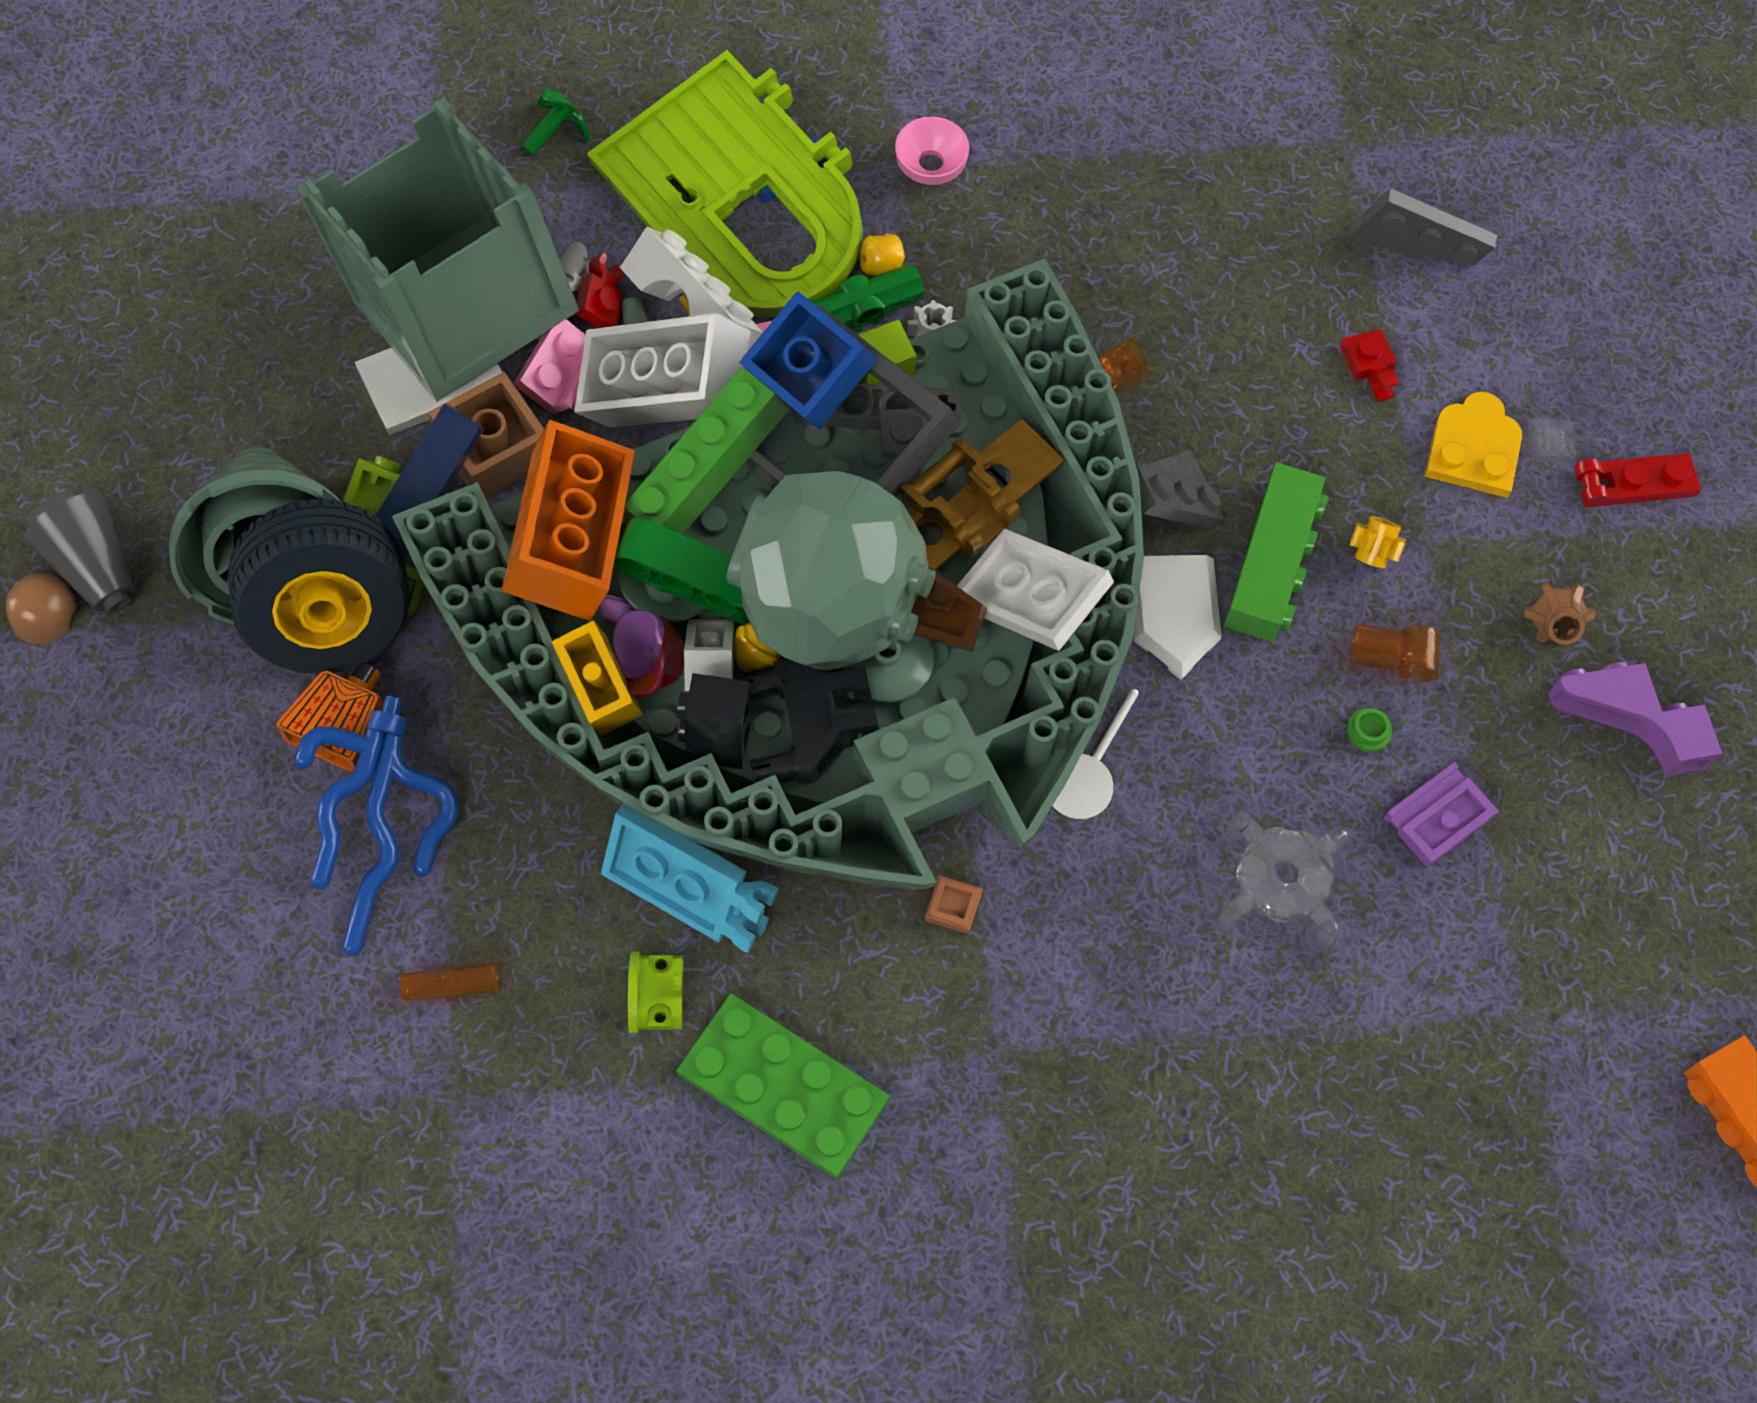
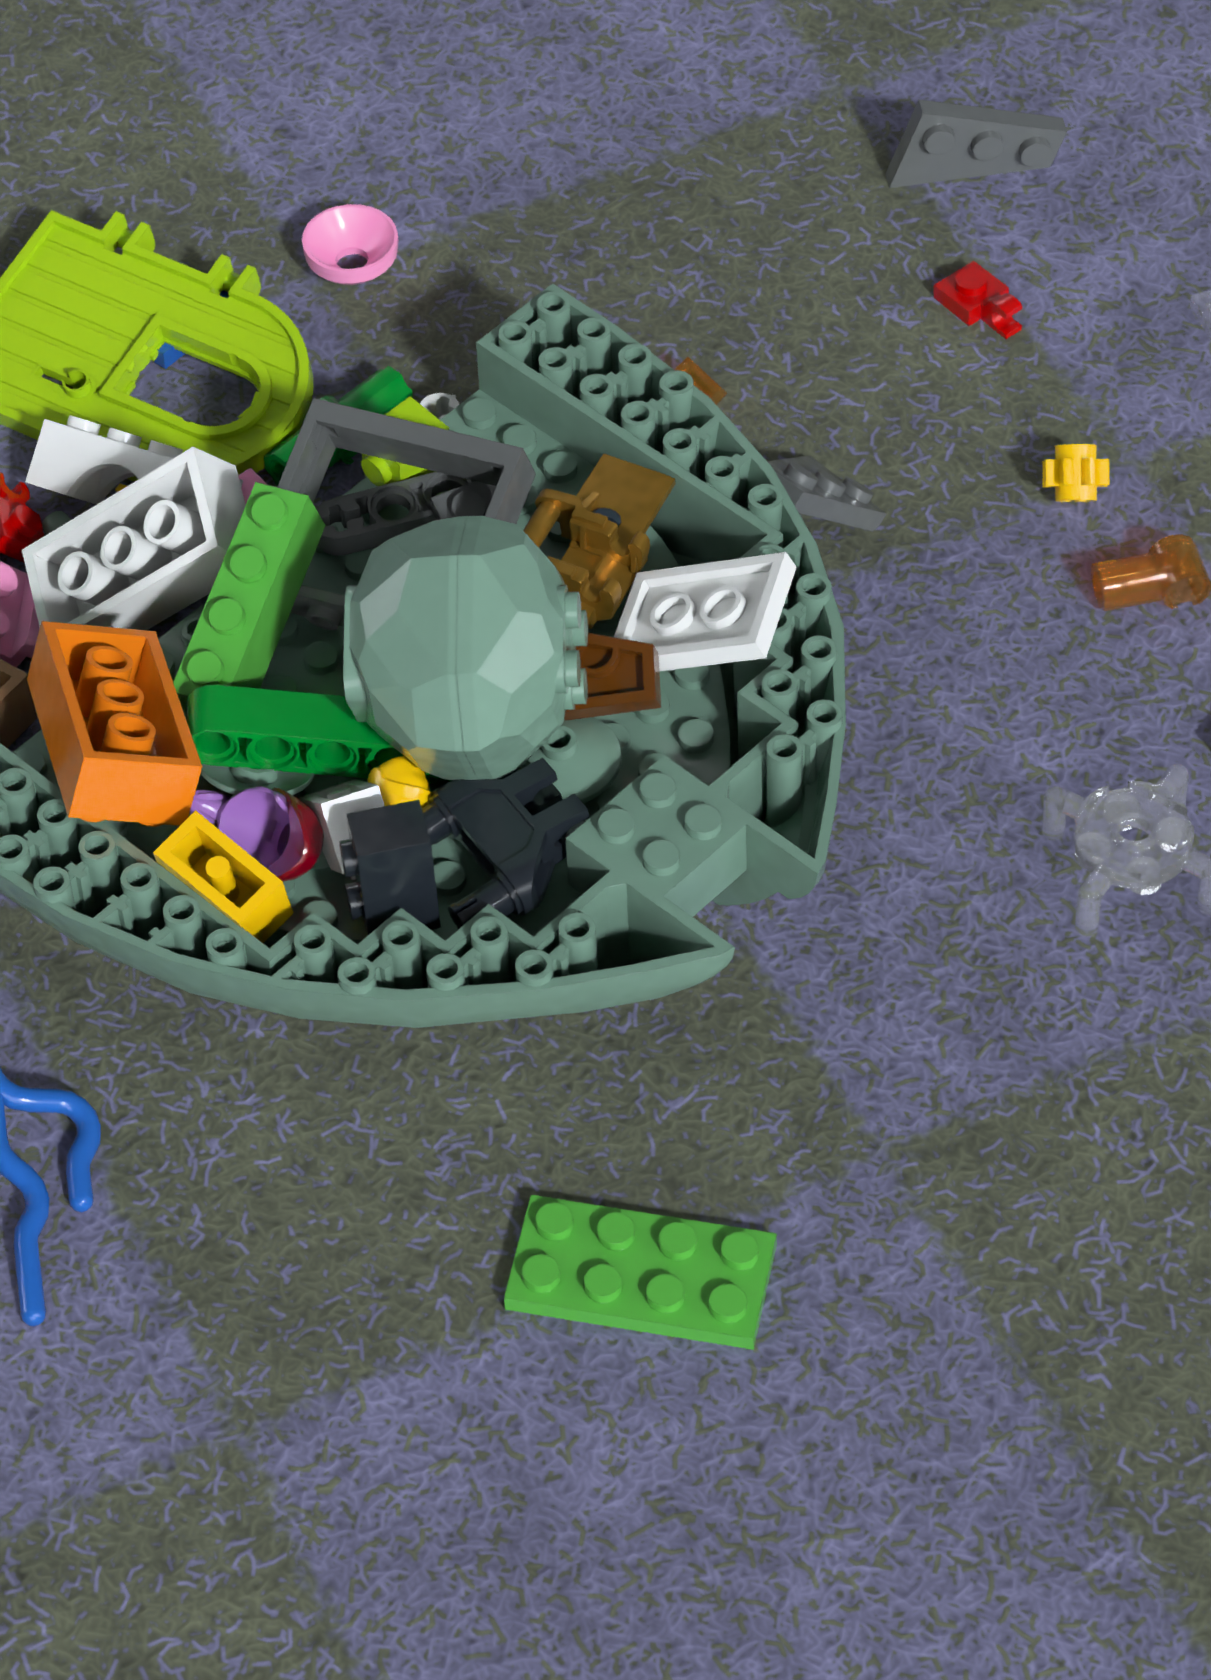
camera: 15 degrees left, 15 degrees down
(449, 982) = (176, 1304): clear orange pin -> none
(655, 992) = (439, 1228): lime piece -> none
(686, 880) = (419, 1084): medium azure tile -> none
(808, 360) = (334, 449): blue brick -> none
(881, 254) = (340, 369): yellow piece -> none
(953, 904) = (755, 1014): nougat tile -> none
(1090, 782) = (858, 837): white piece -> none
(1178, 610) = (884, 625): white tile -> none
(1275, 553) = (962, 525): bright green brick -> none
(1369, 730) = (1159, 668): bright green plate -> none
(1475, 445) = (1141, 345): yellow plate -> none

